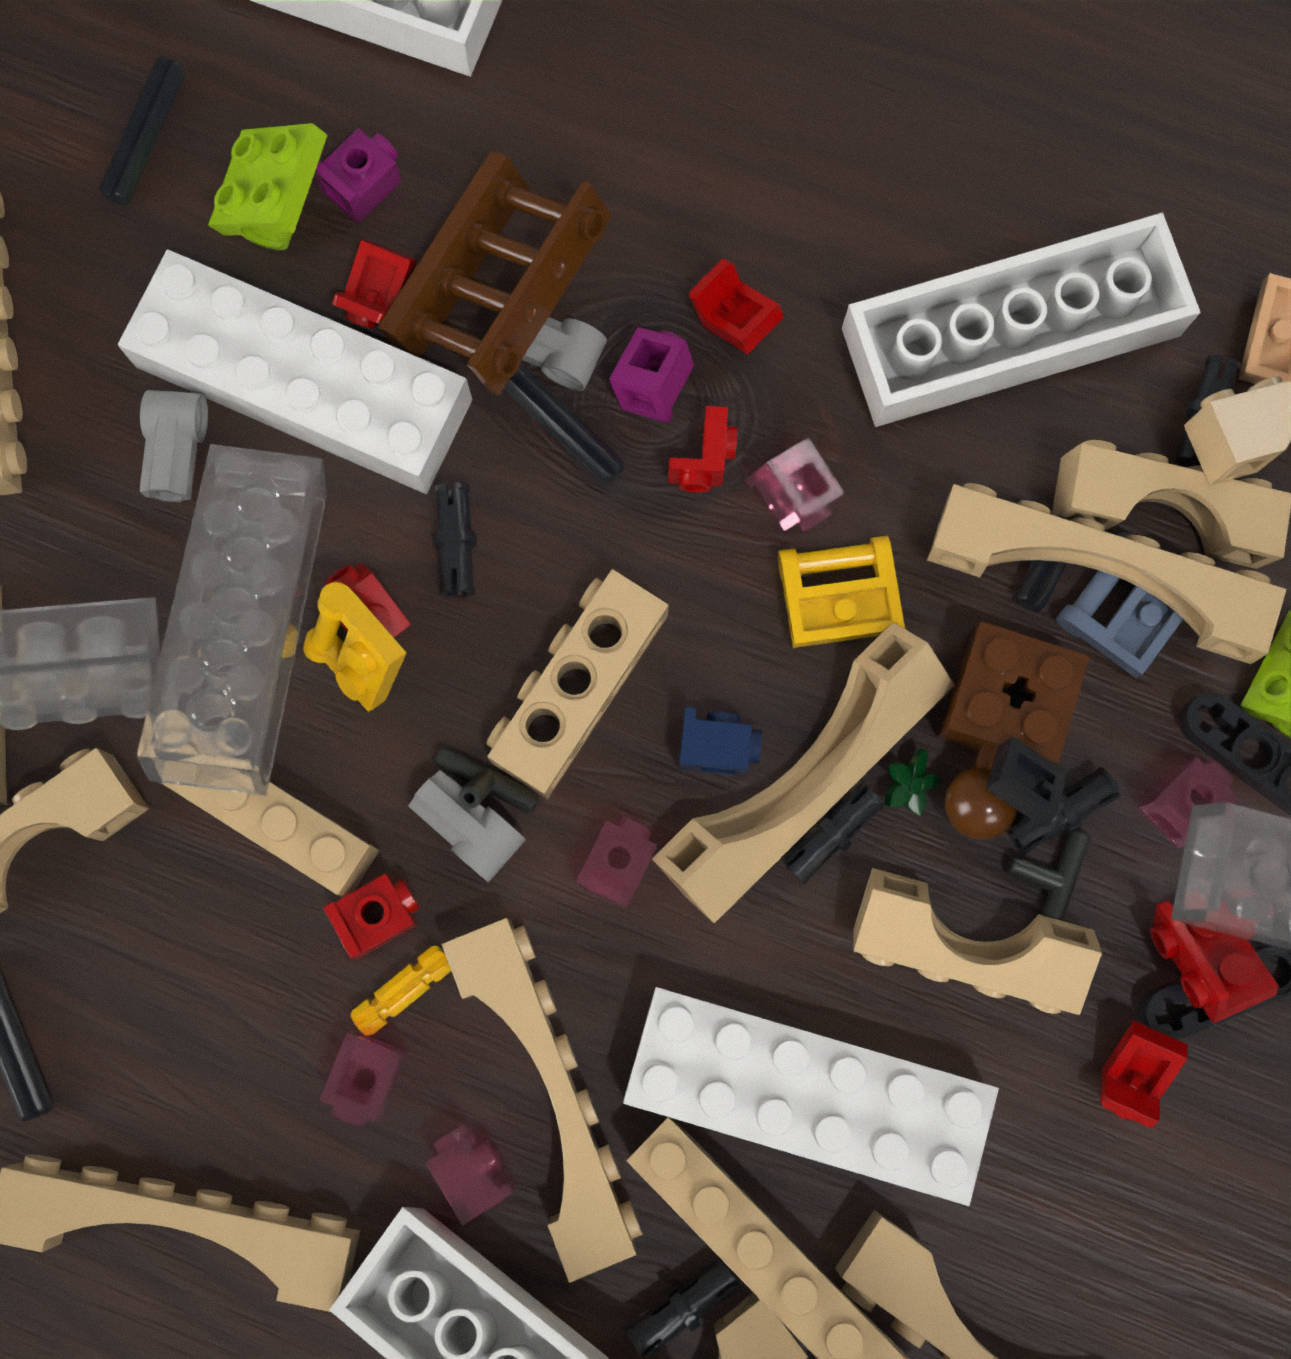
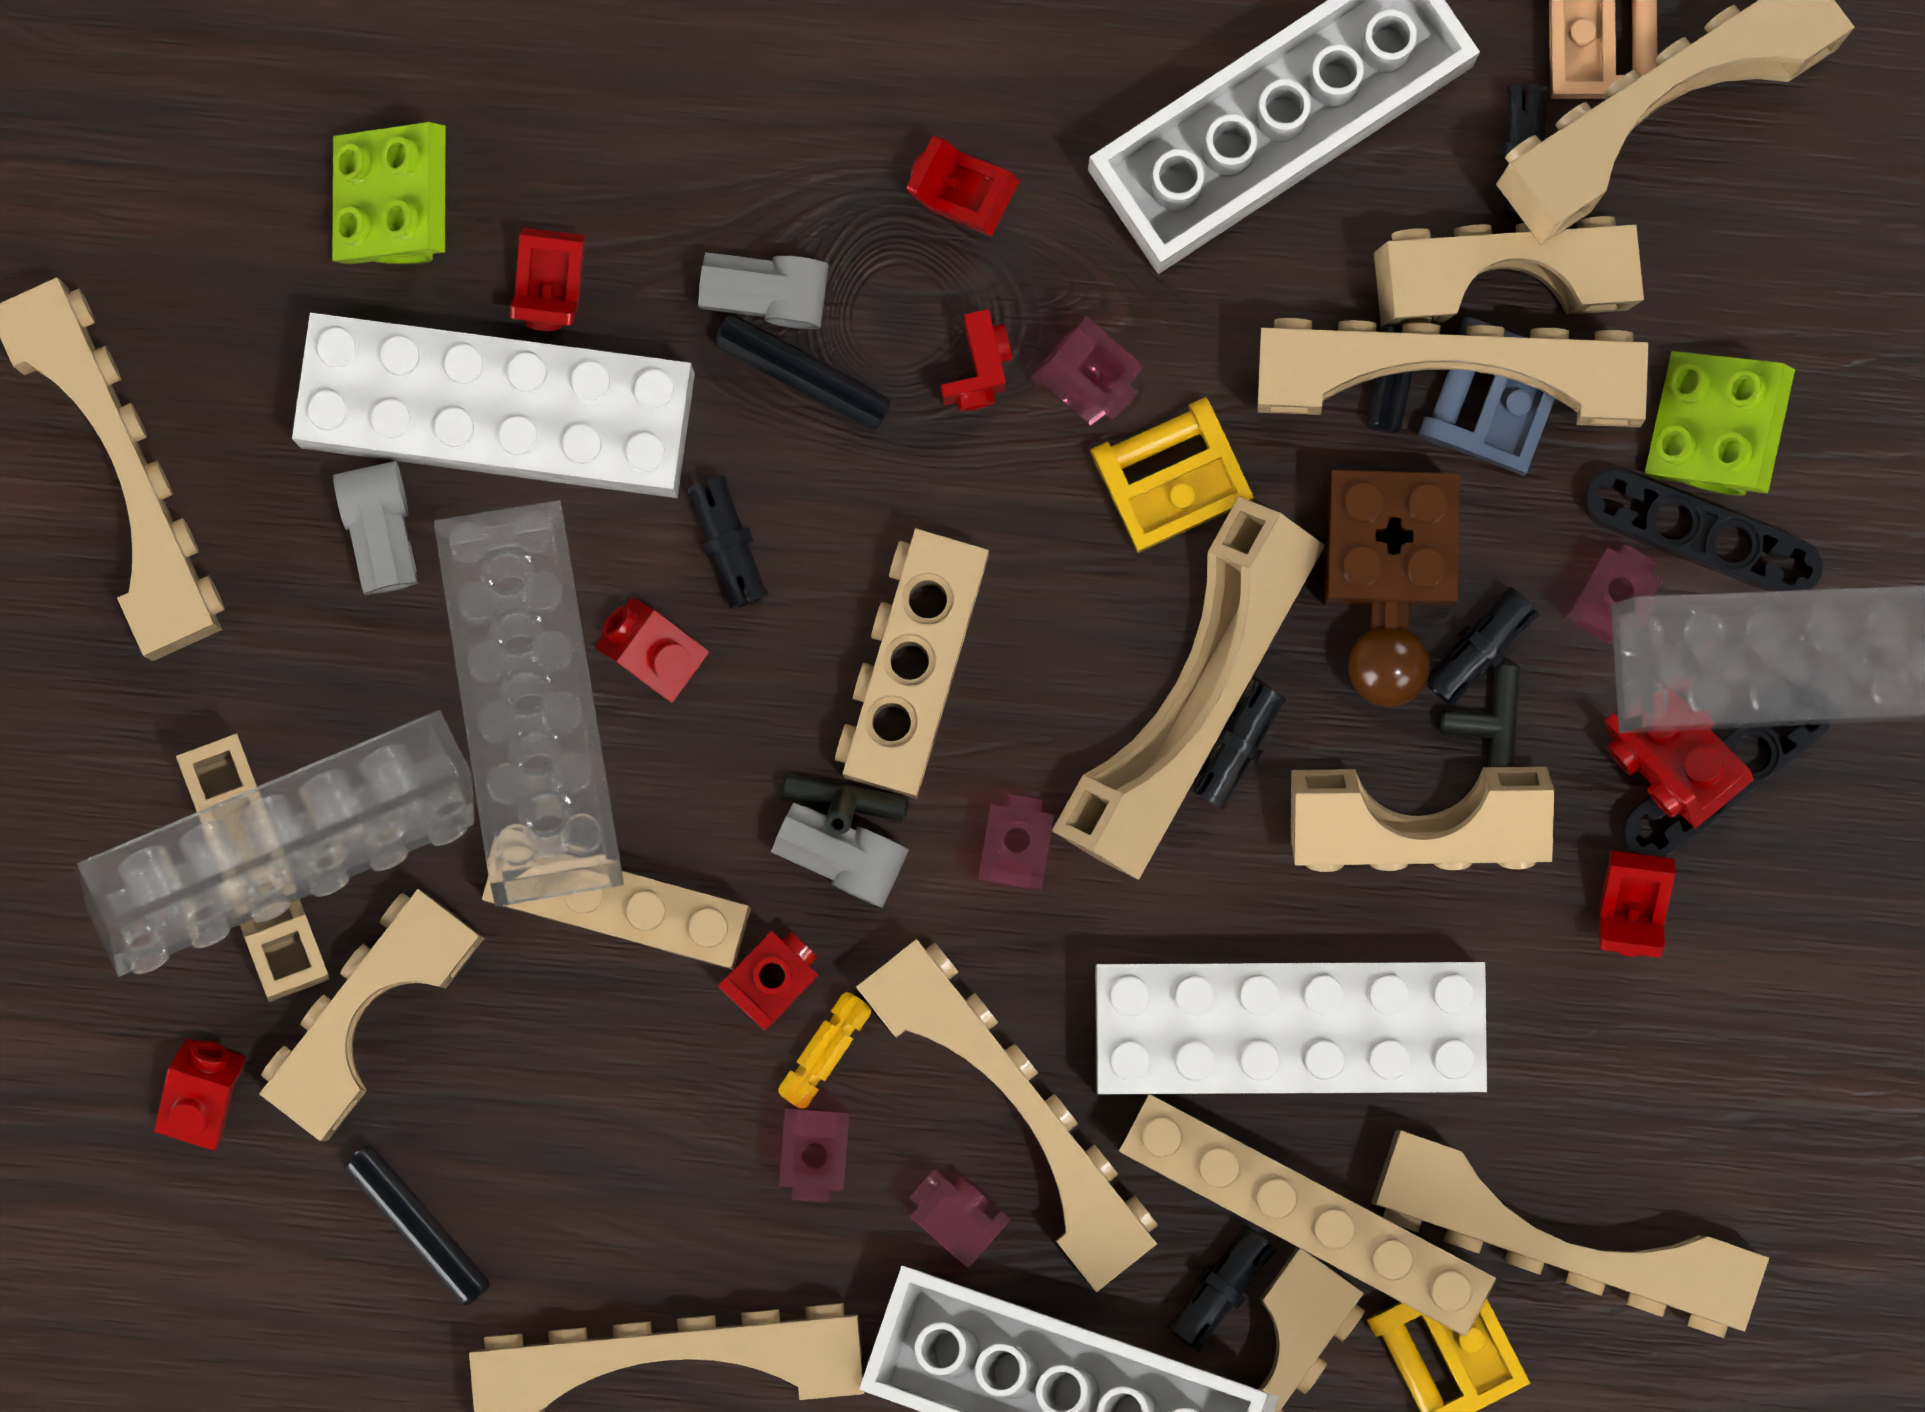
camera: 15 degrees left, 5 degrees up
(142, 130) = (218, 169): black axle -> none
(363, 188) = (487, 173): magenta brick -> none
(368, 656) = (681, 704): yellow plate -> none
(460, 248) = (628, 214): reddish brown fence -> none
(652, 373) = (877, 274): magenta brick -> none
(718, 744) = (1086, 685): dark blue brick -> none
(911, 783) = (1308, 666): dark green plant -> none
(1028, 785) = (1429, 634): black bracket -> none

